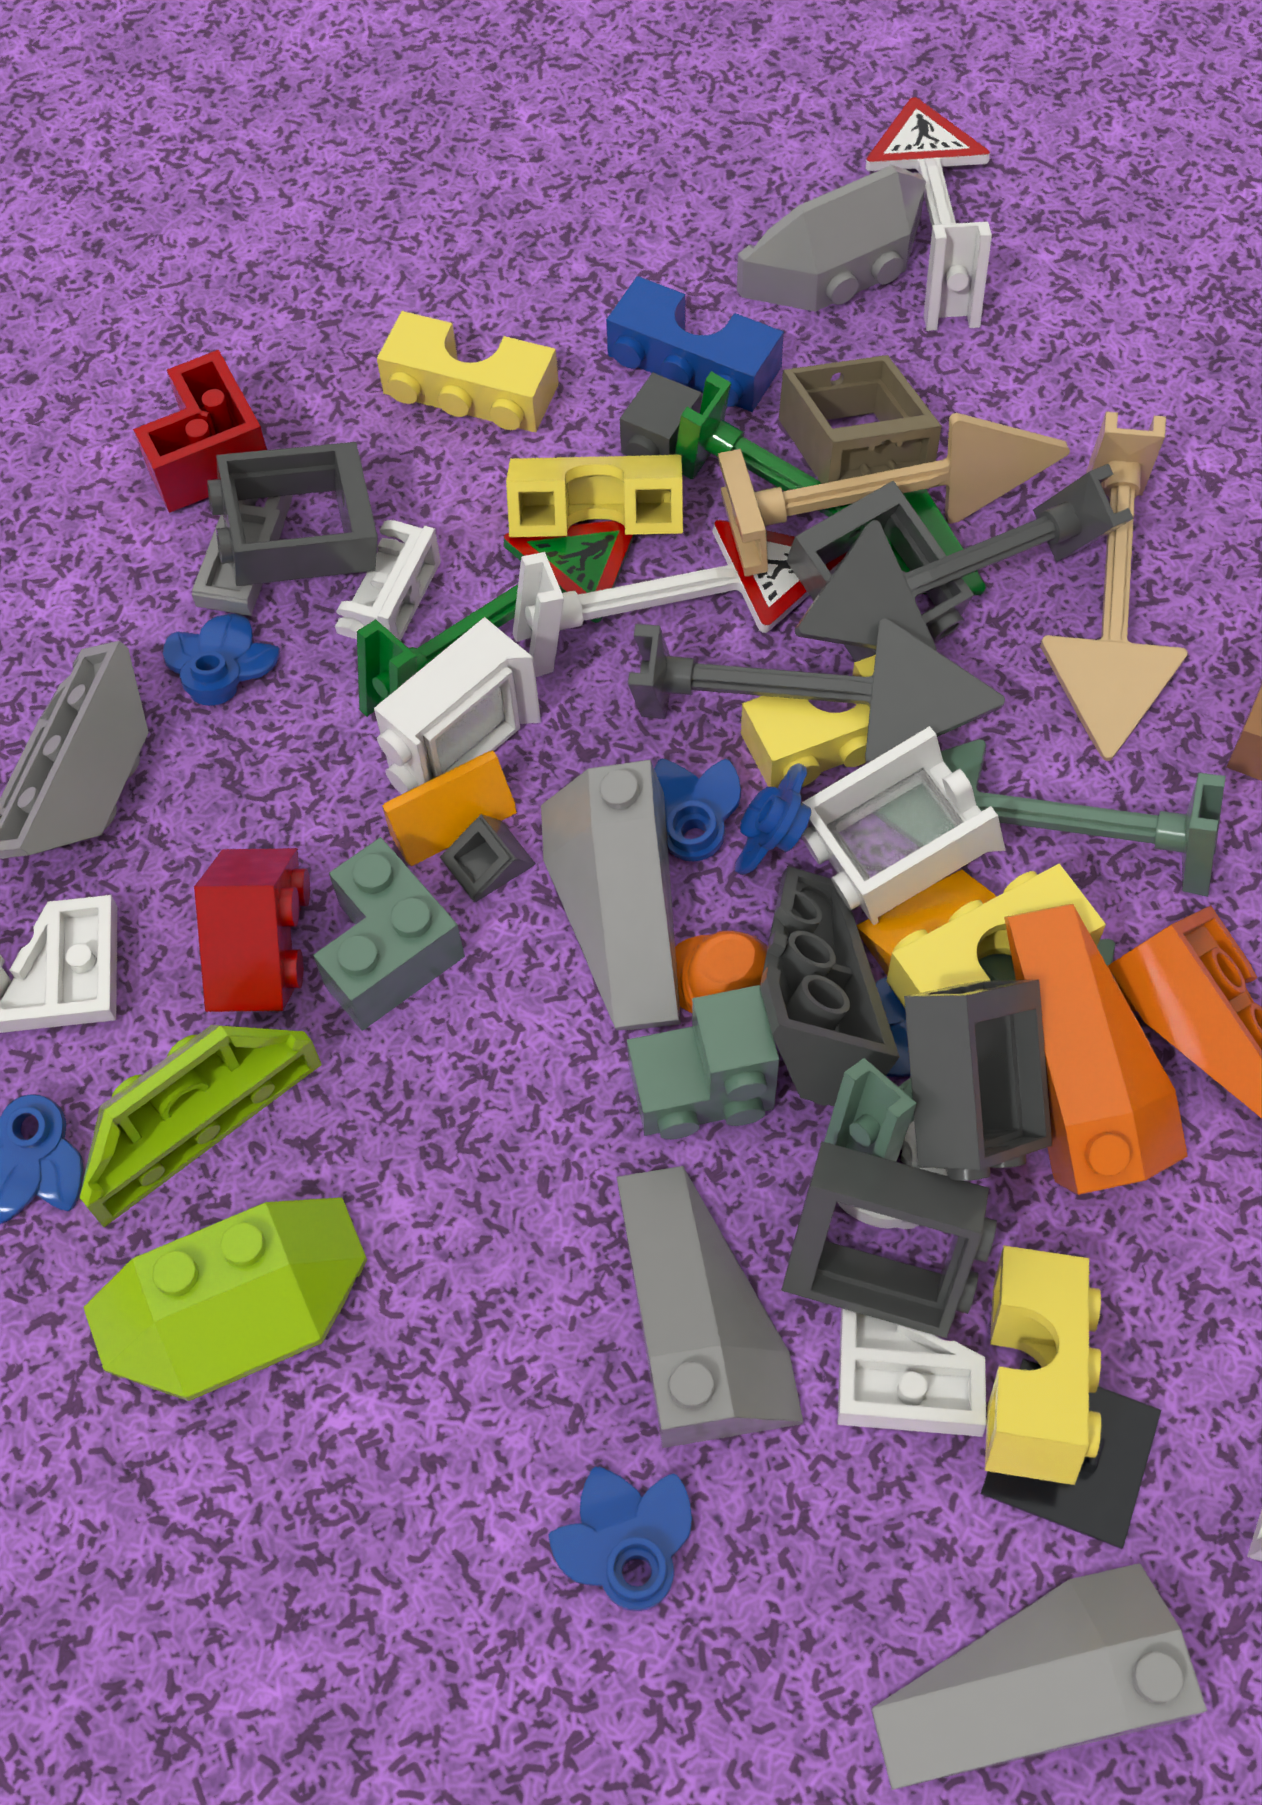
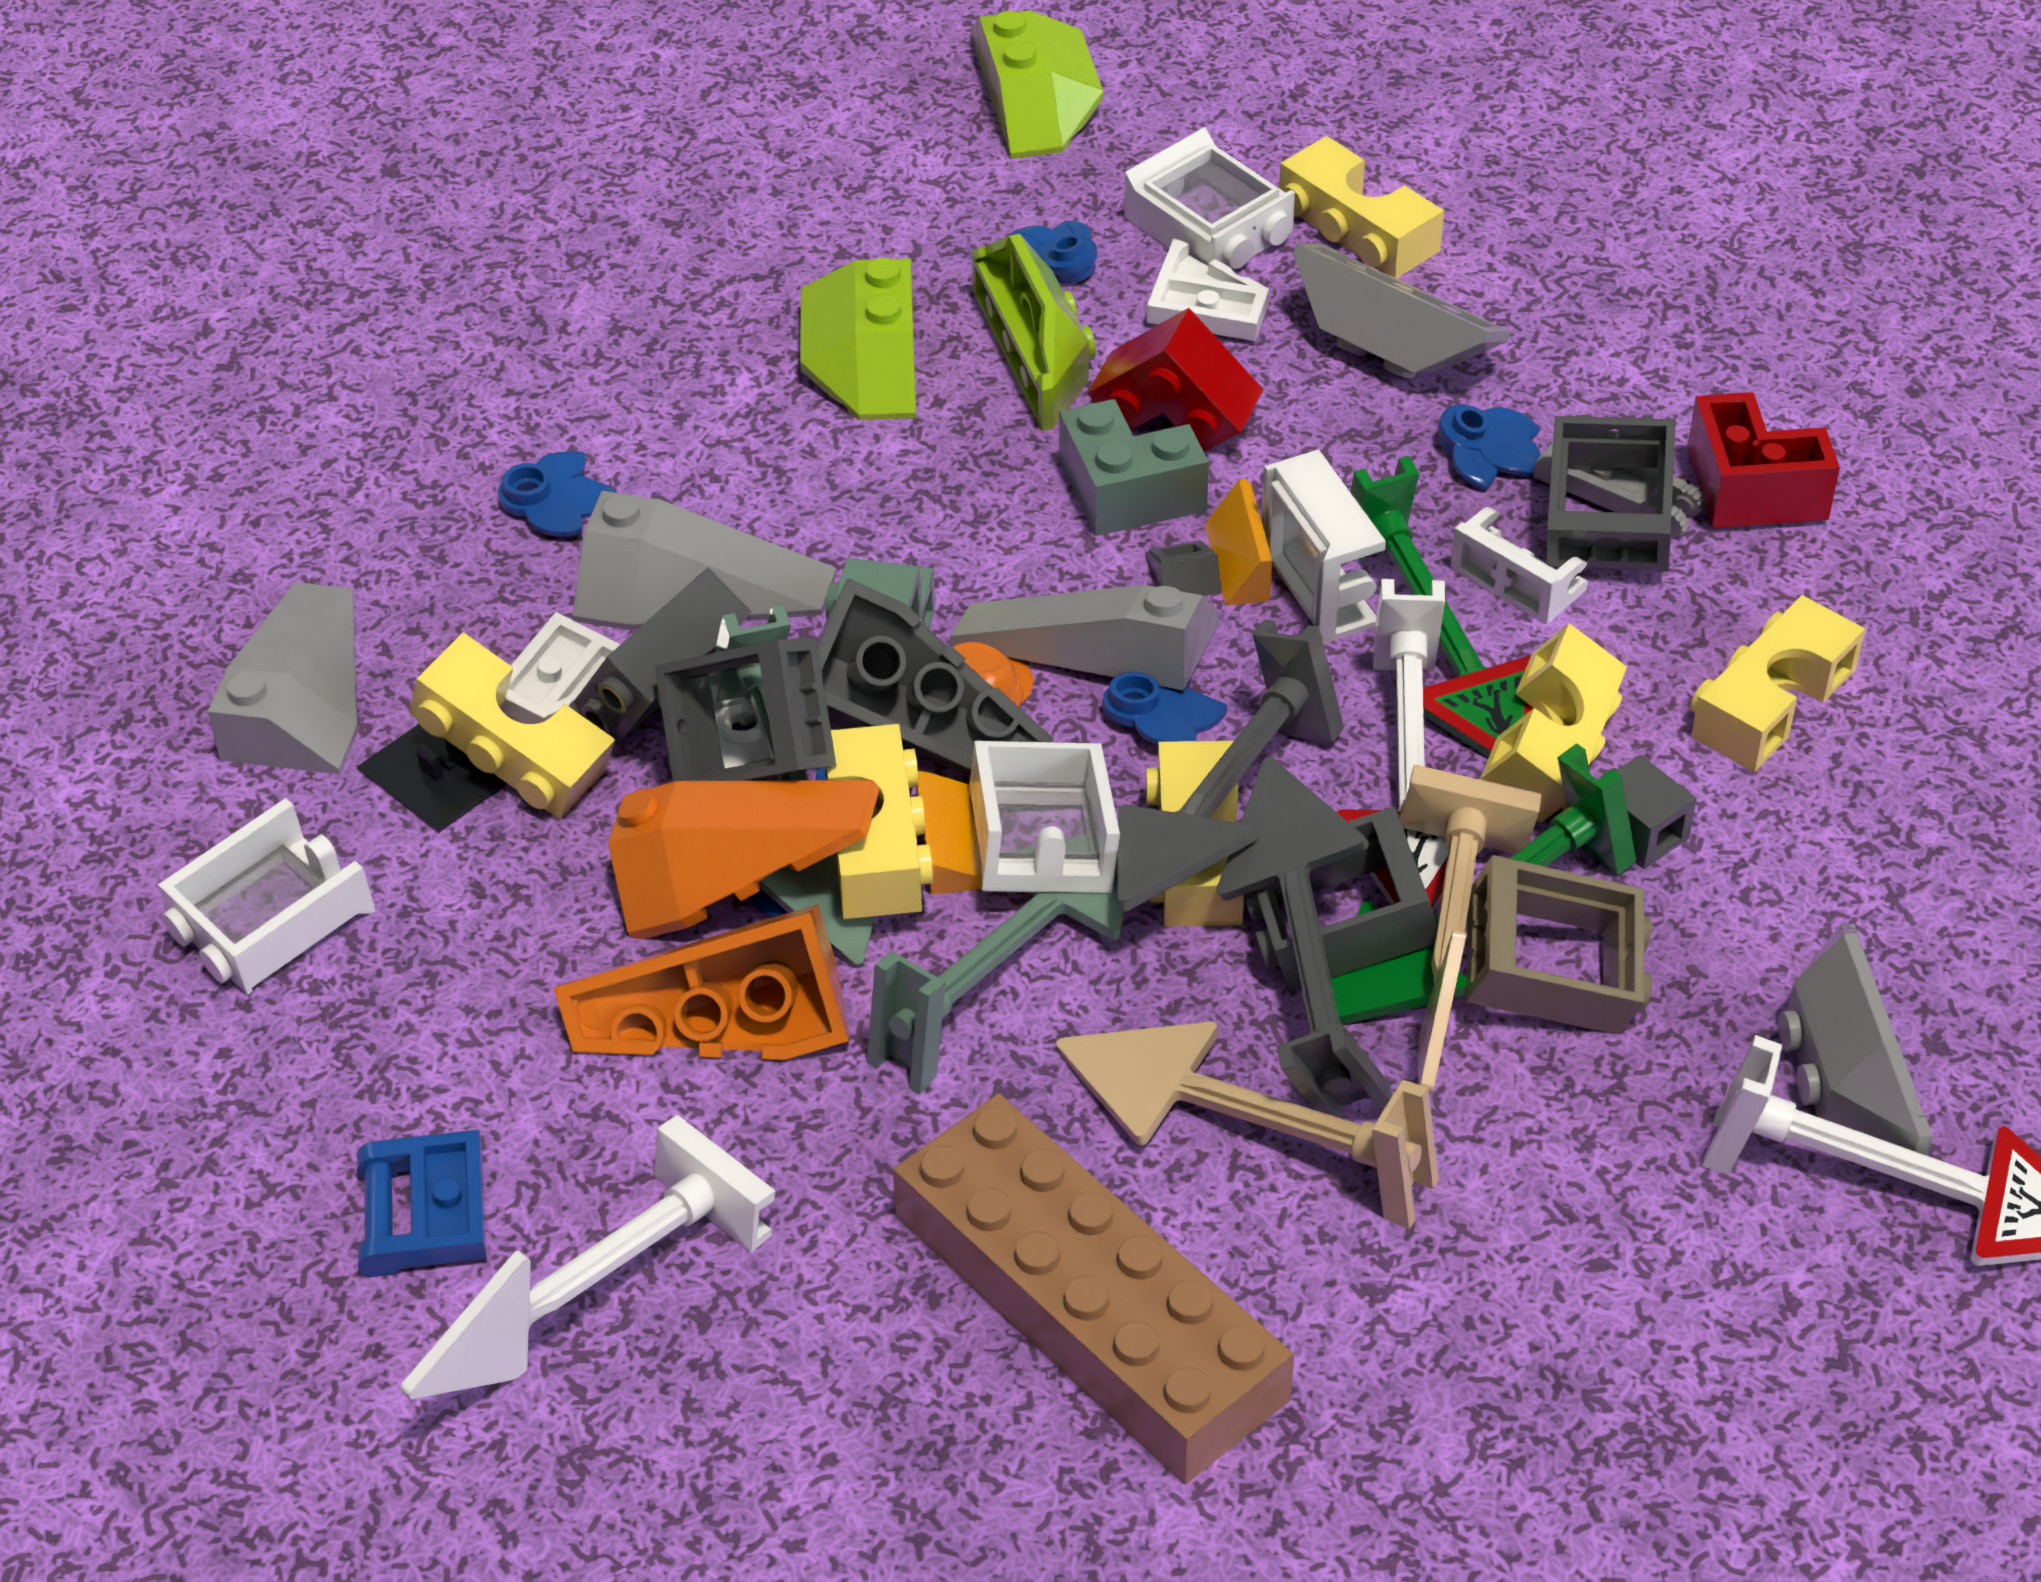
camera: 110 degrees right, 15 degrees down
(650, 335) = (1778, 840): blue arch -> none
(773, 820) = (1086, 720): blue plate -> none

